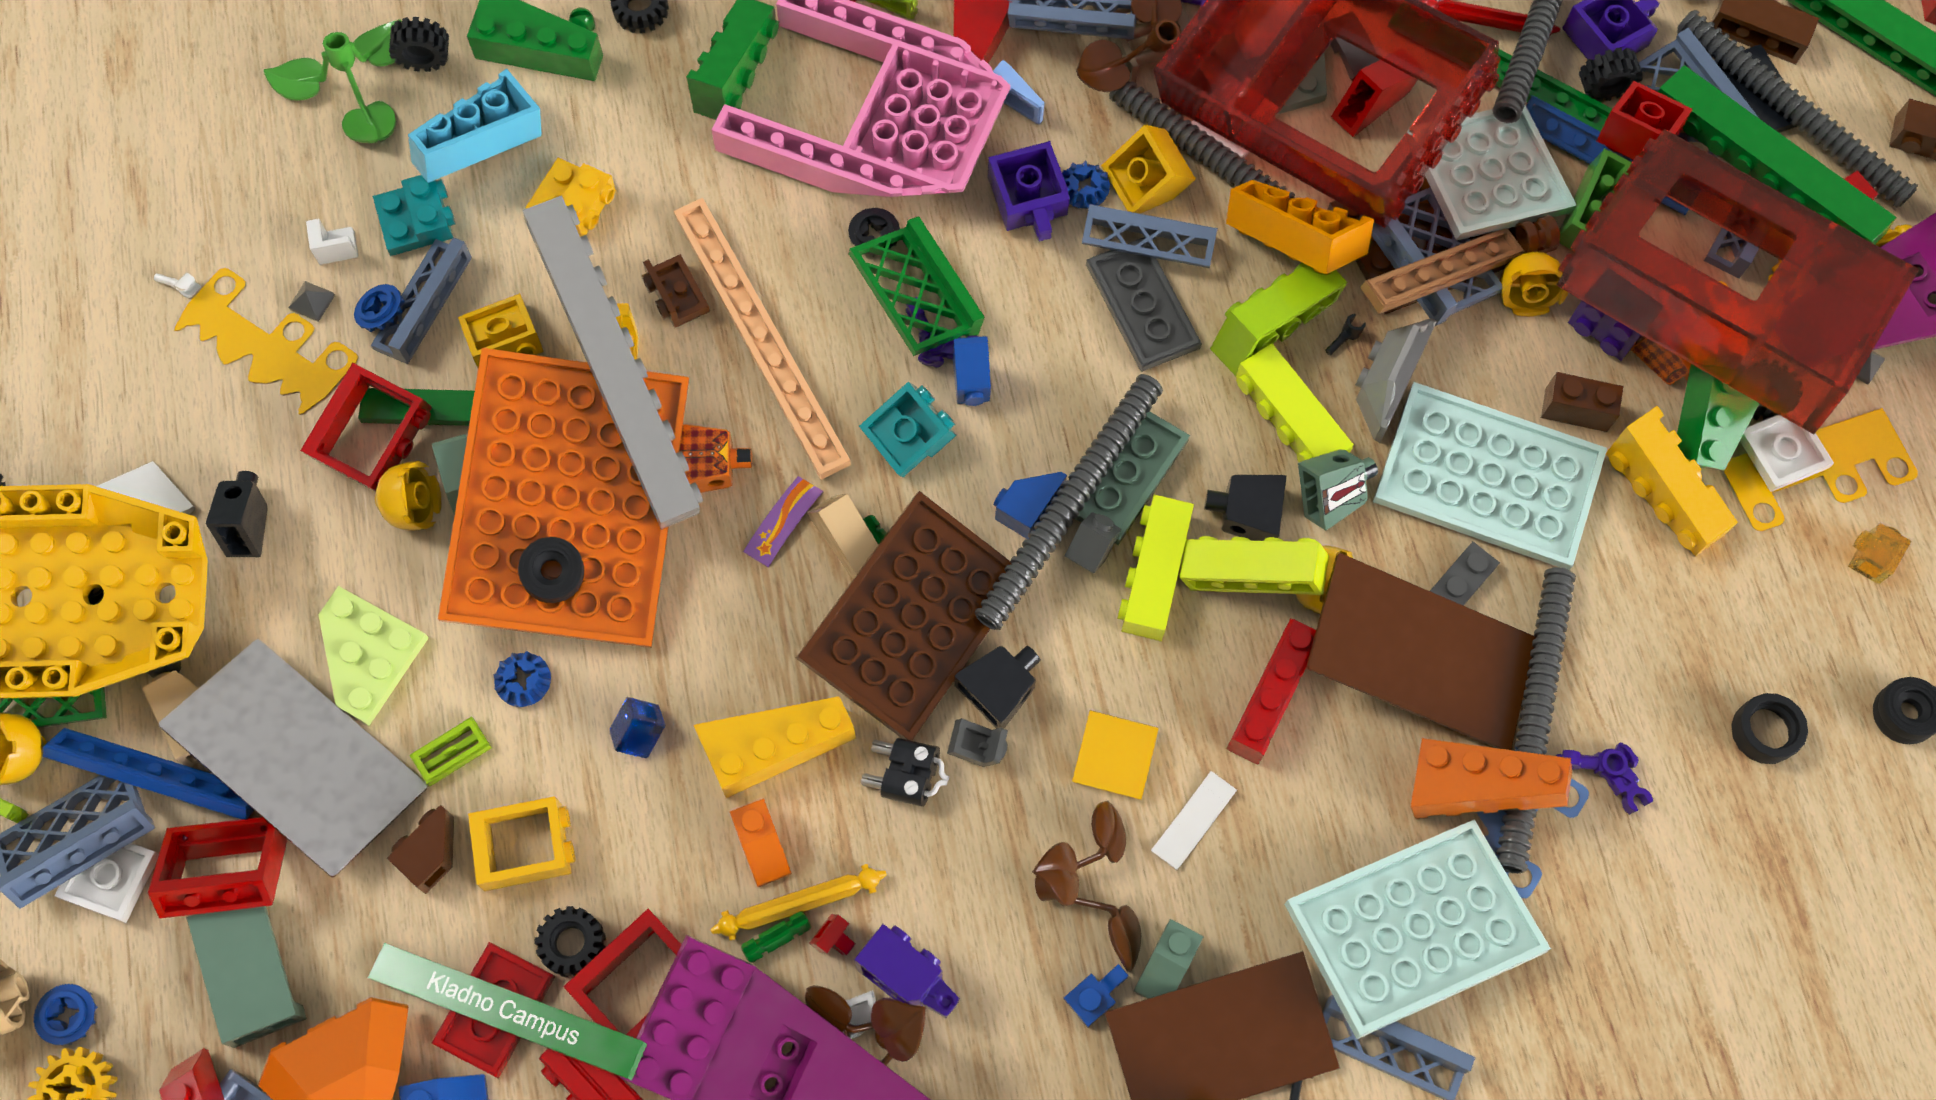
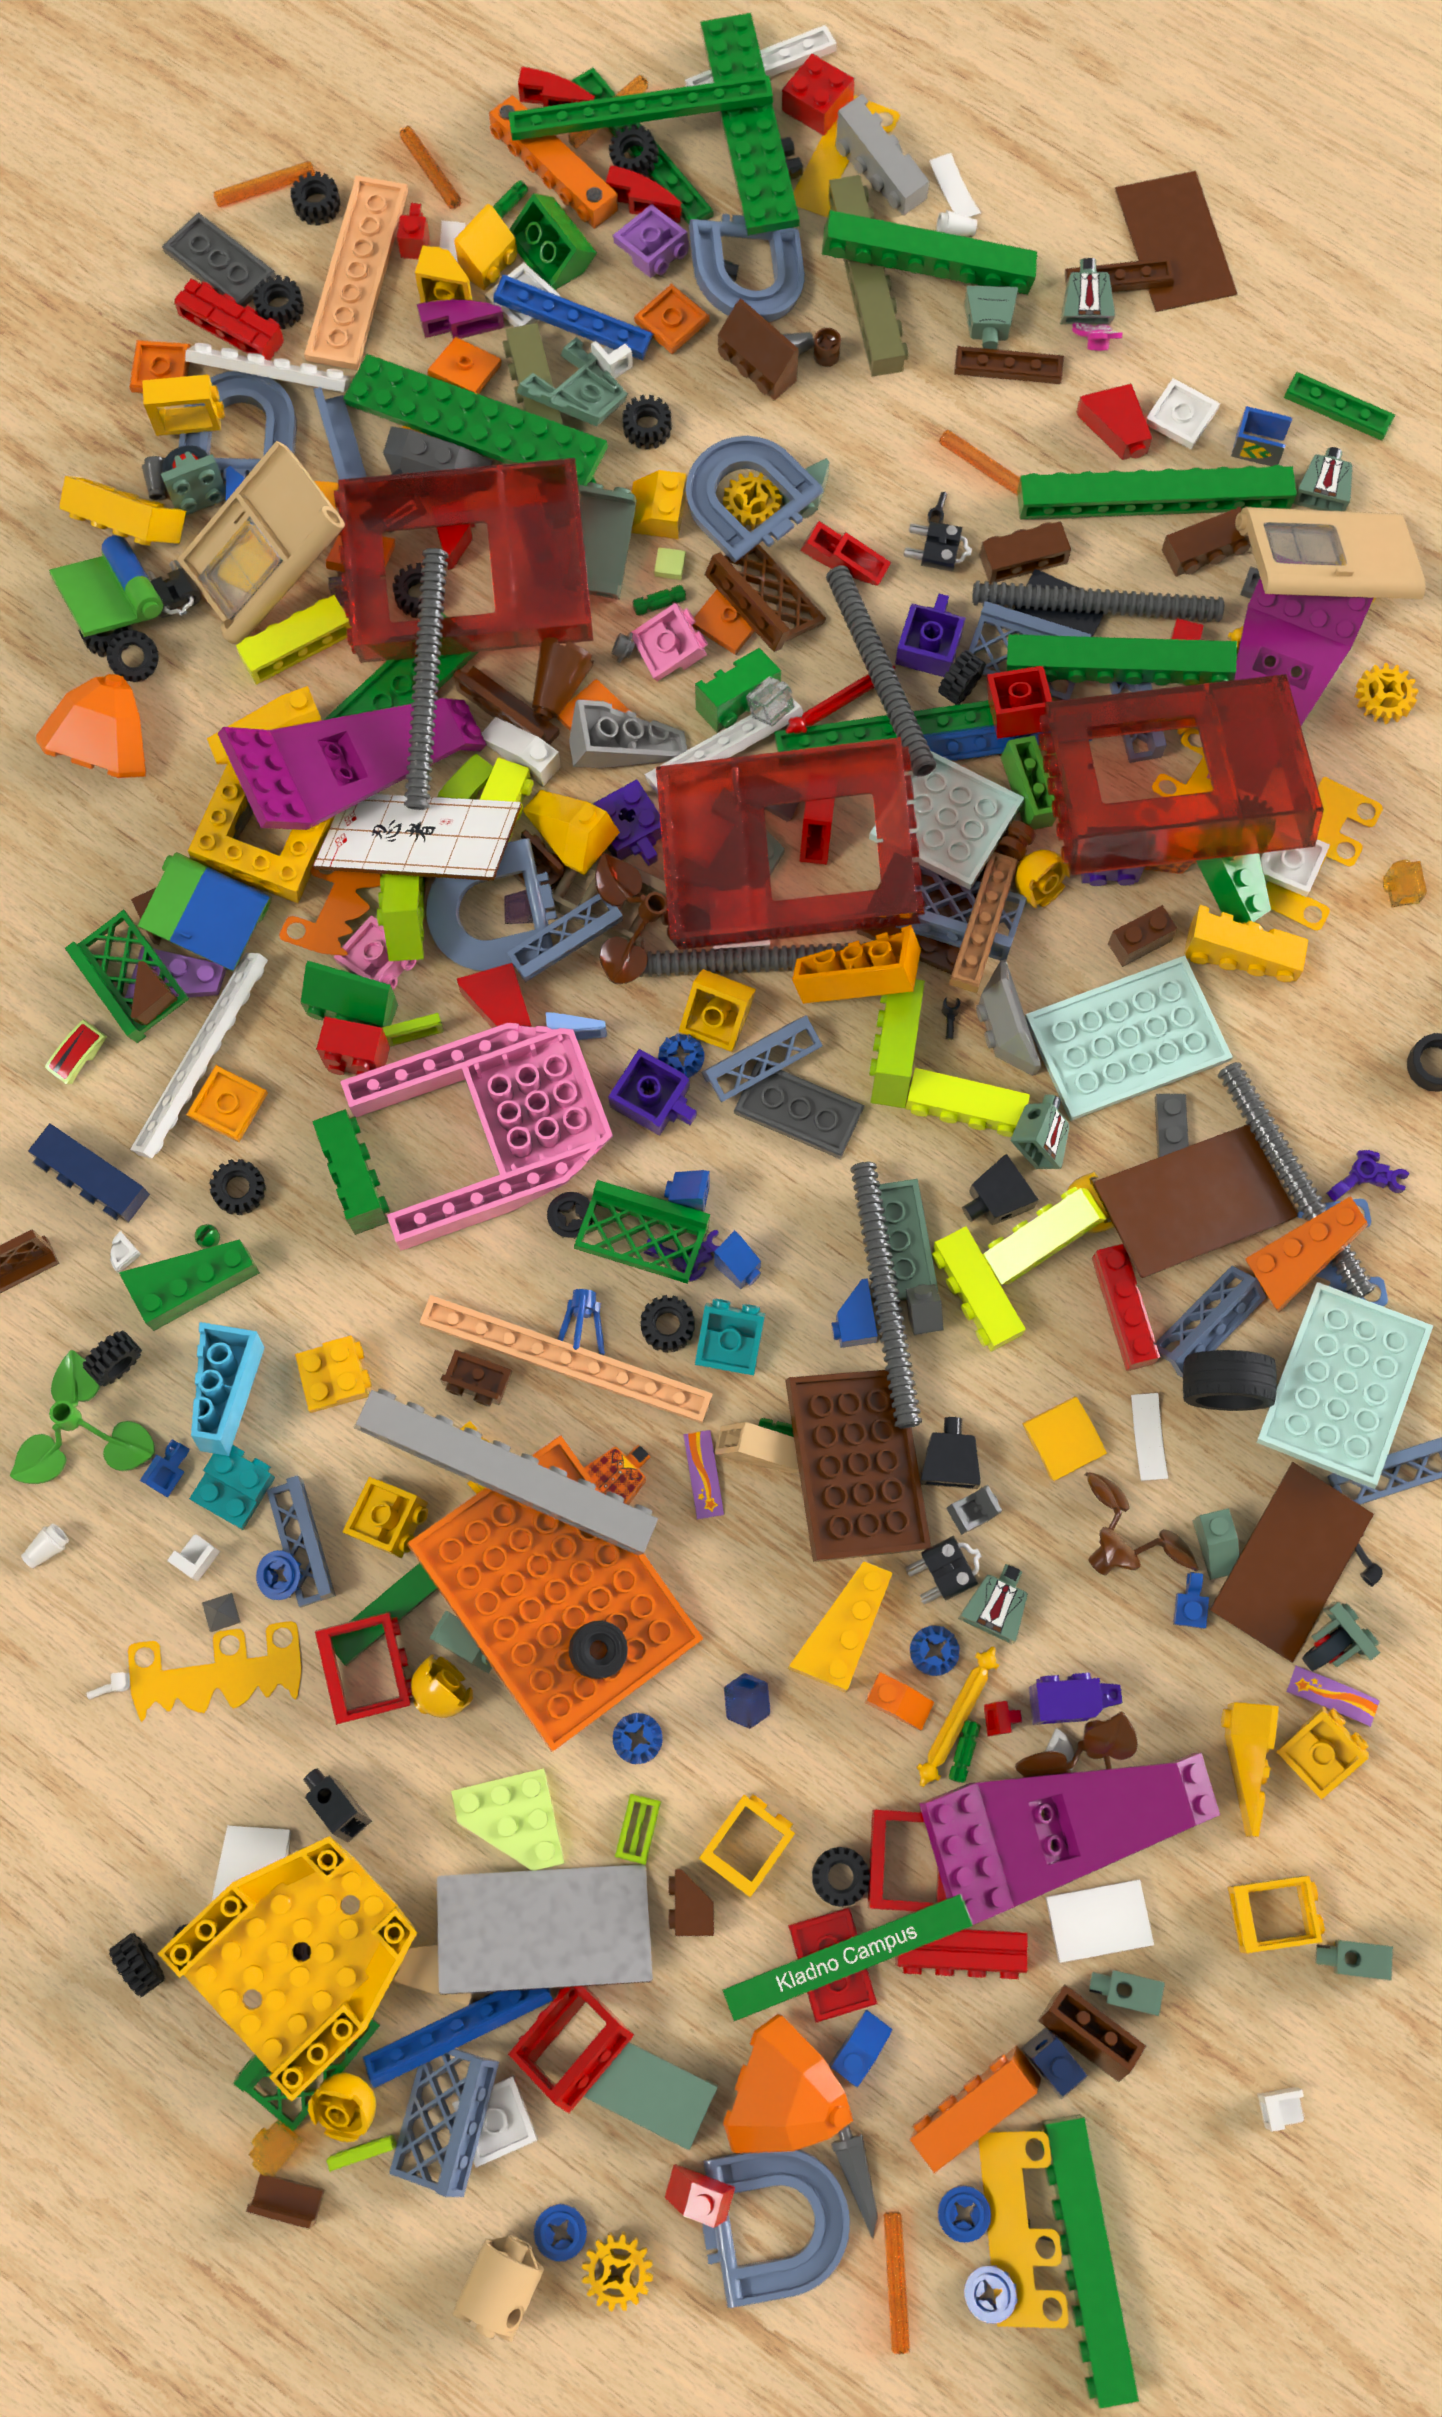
camera: 40 degrees left, 5 degrees up
(238, 140) = (45, 1545): none -> white cone
(373, 162) = (164, 1472): none -> blue plate
(813, 306) = (583, 1305): none -> blue plant
(844, 842) = (933, 1665): none -> blue gear
(868, 359) = (675, 1307): none -> black tyre
(921, 839) = (997, 1605): none -> torso
(989, 287) = (689, 1189): none -> blue slope
(1308, 826) = (1229, 1380): none -> black tyre
(1342, 774) = (1216, 1322): none -> sand blue fence

